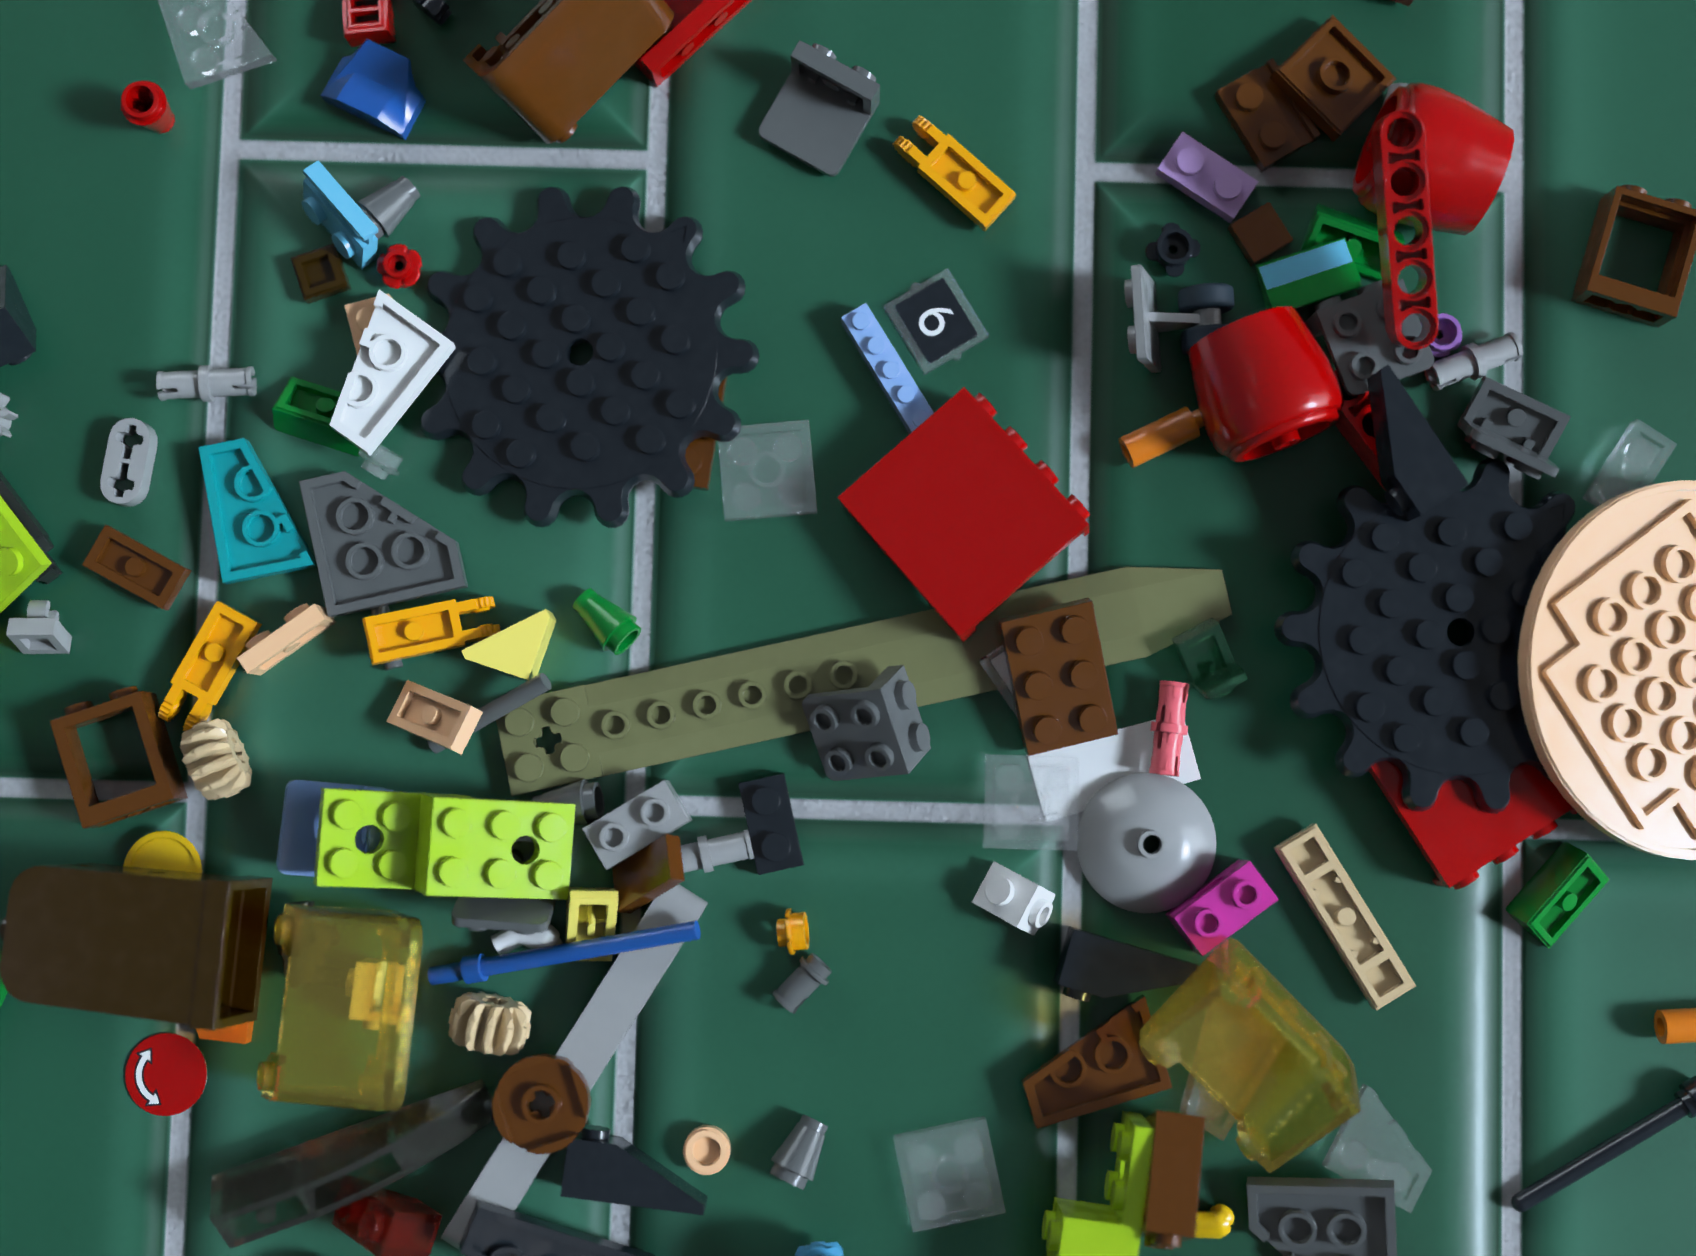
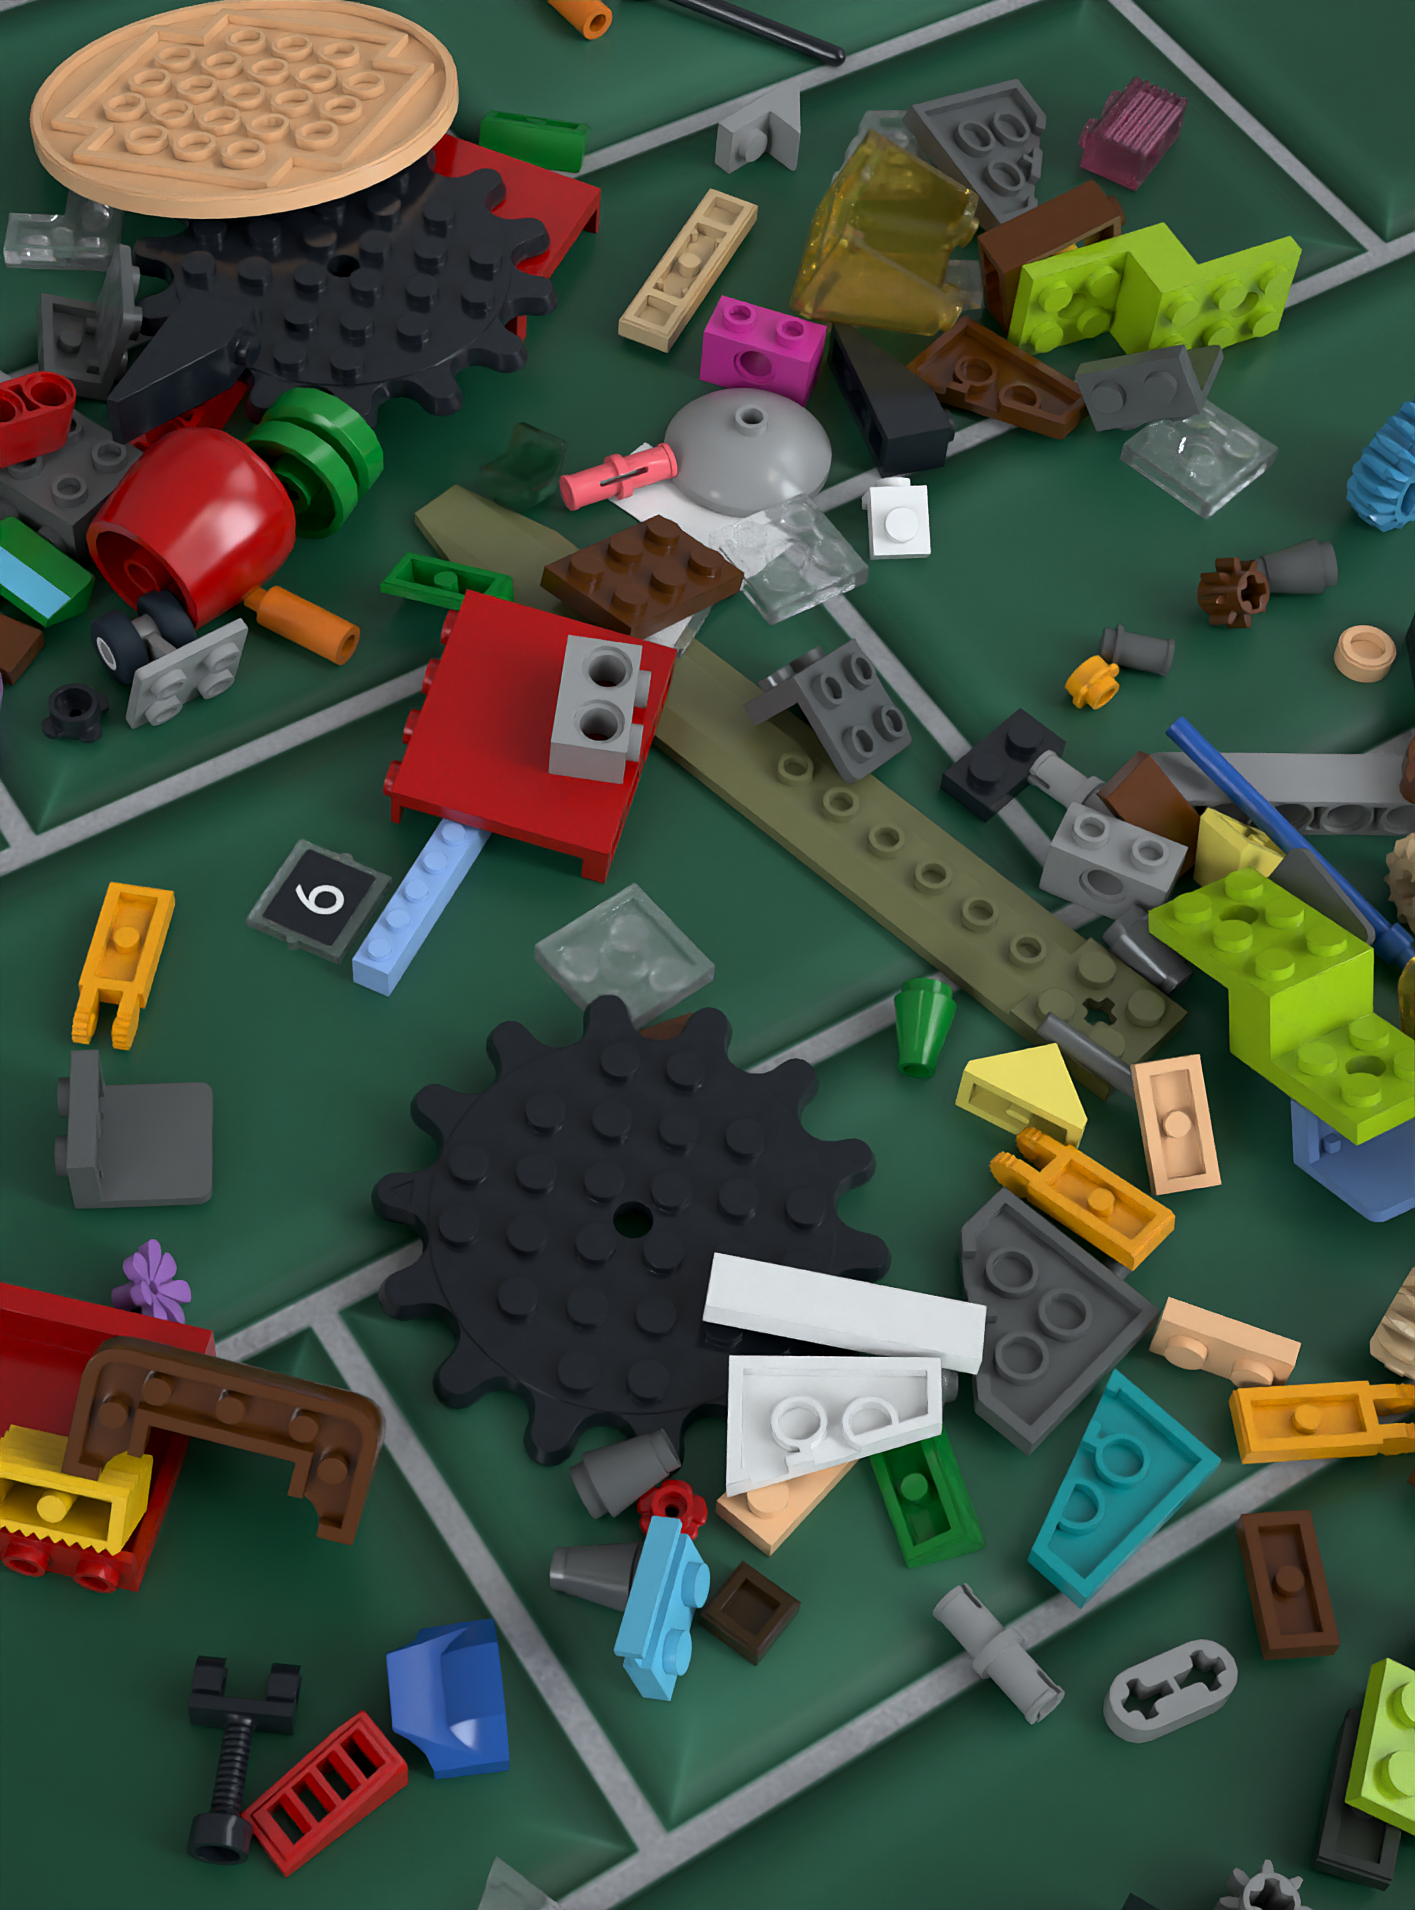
camera: 130 degrees left, 30 degrees down
(433, 248) = (623, 1472): none -> dark grey cone
(434, 423) = (844, 1312): none -> white tile
(713, 69) = (152, 1285): none -> medium lavender plant
(802, 1085) = (1233, 592): none -> reddish brown gear
(939, 533) = (595, 709): none -> light grey brick
(1013, 1174) = (1148, 386): none -> dark grey bracket
(1124, 537) = (443, 581): none -> green slope
(1286, 501) = (319, 455): none -> green wheel
(1463, 1085) = (762, 126): none -> light grey slope

